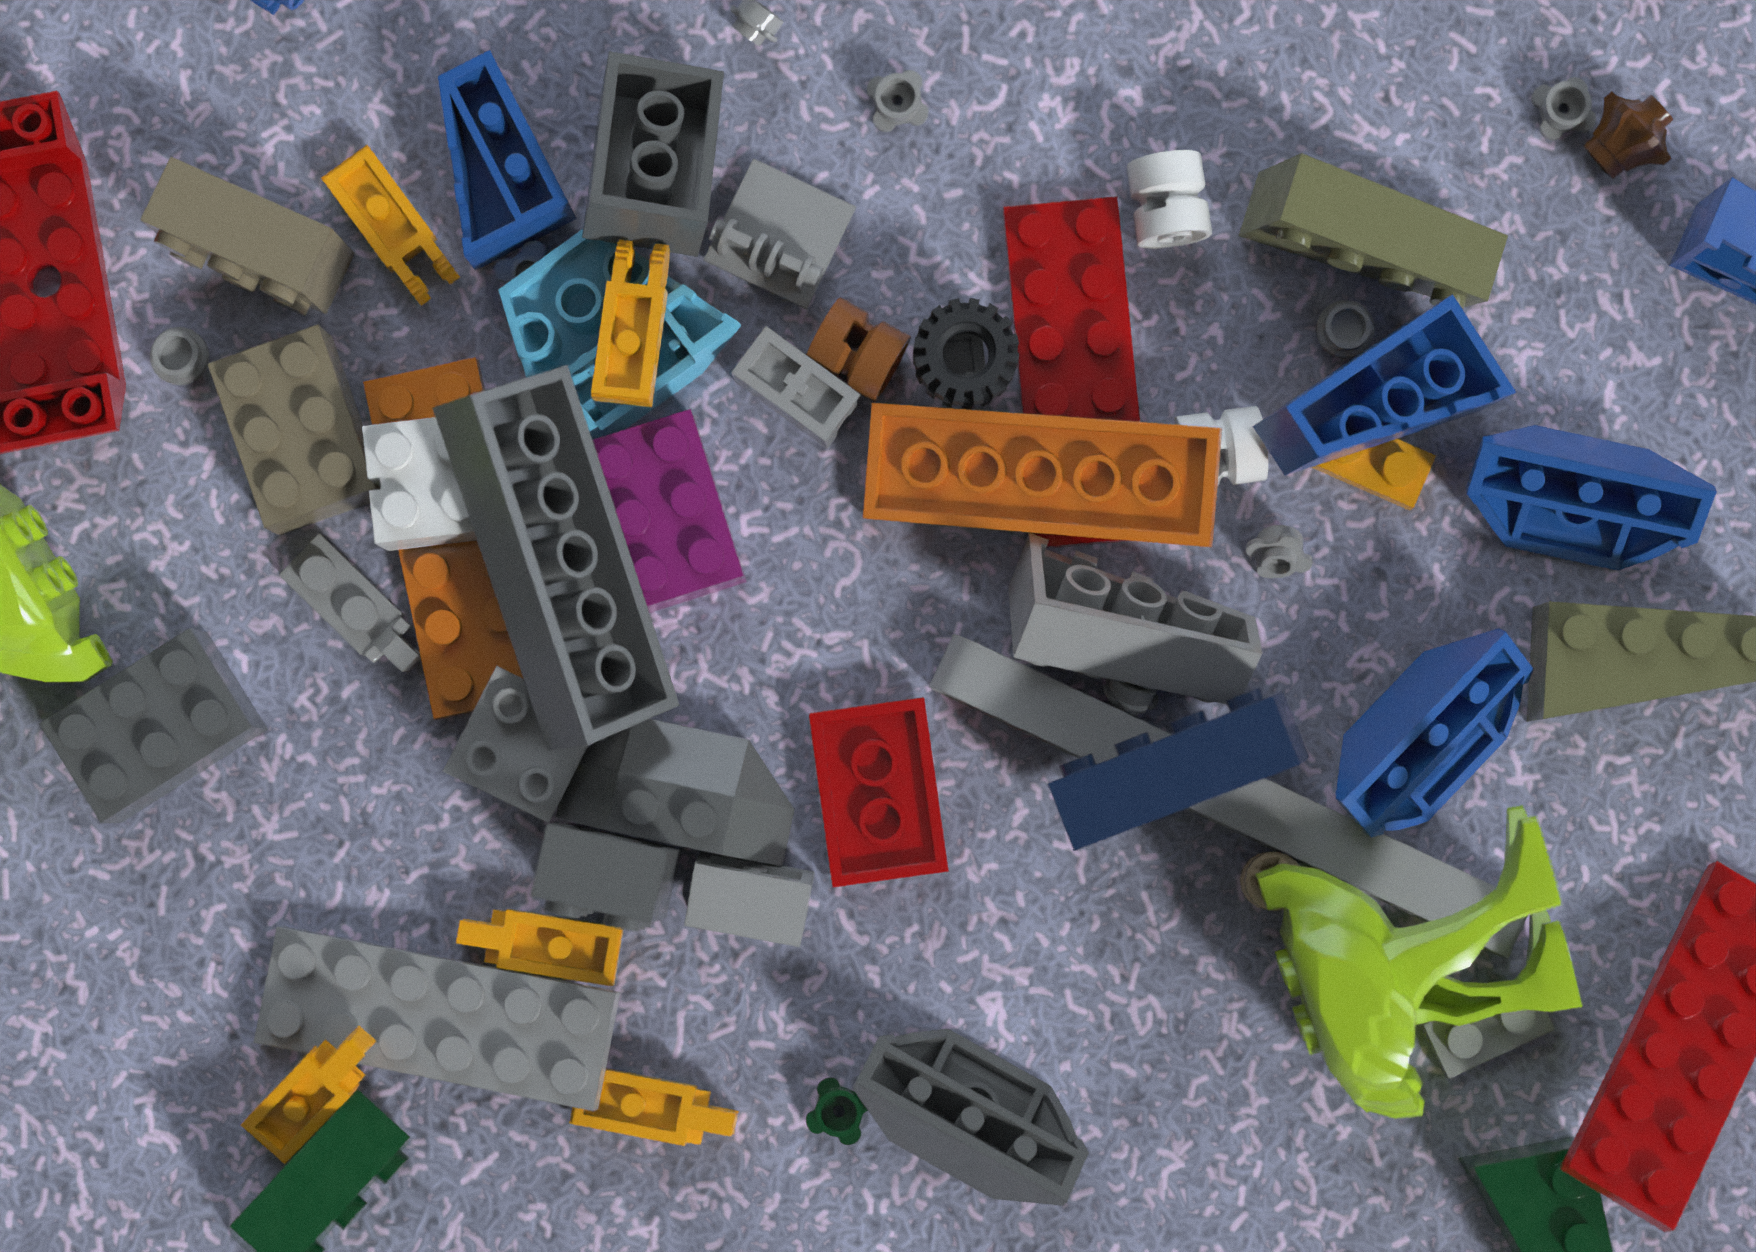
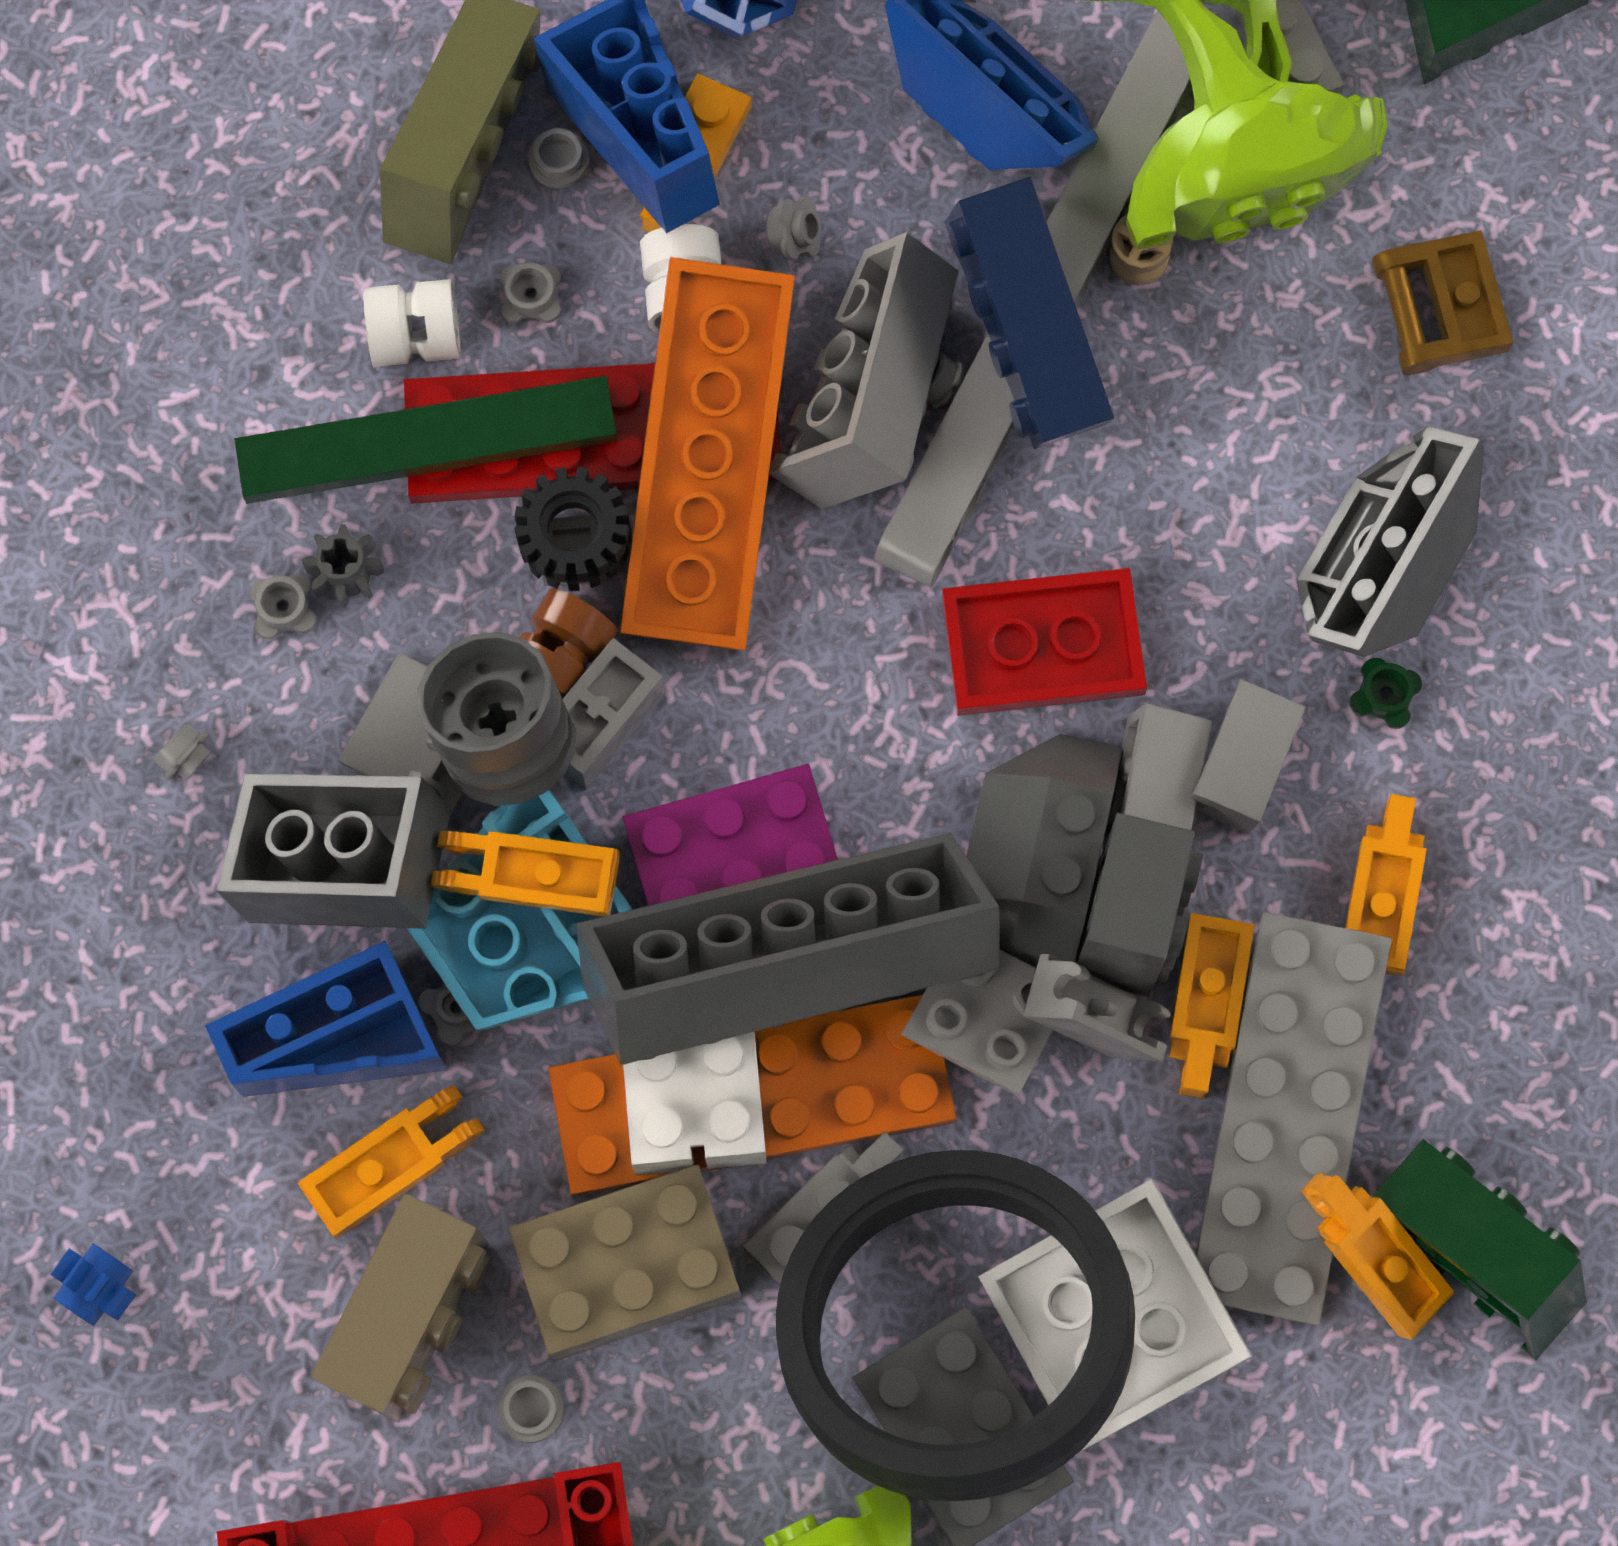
camera: 90 degrees left, 10 degrees down
(234, 580) = (983, 1466): none -> black tyre
(255, 860) = (1179, 1319): none -> white plate
(518, 835) = (1093, 1011): none -> light grey hinge
(767, 981) = (1247, 756): none -> light grey hinge
(777, 262) = (496, 718): none -> dark grey wheel
(946, 143) = (329, 557): none -> dark grey gear
(1051, 218) = (425, 439): none -> dark green tile
(1220, 297) = (528, 276): none -> light grey plate
(1232, 1190) = (1462, 298): none -> pearl gold plate

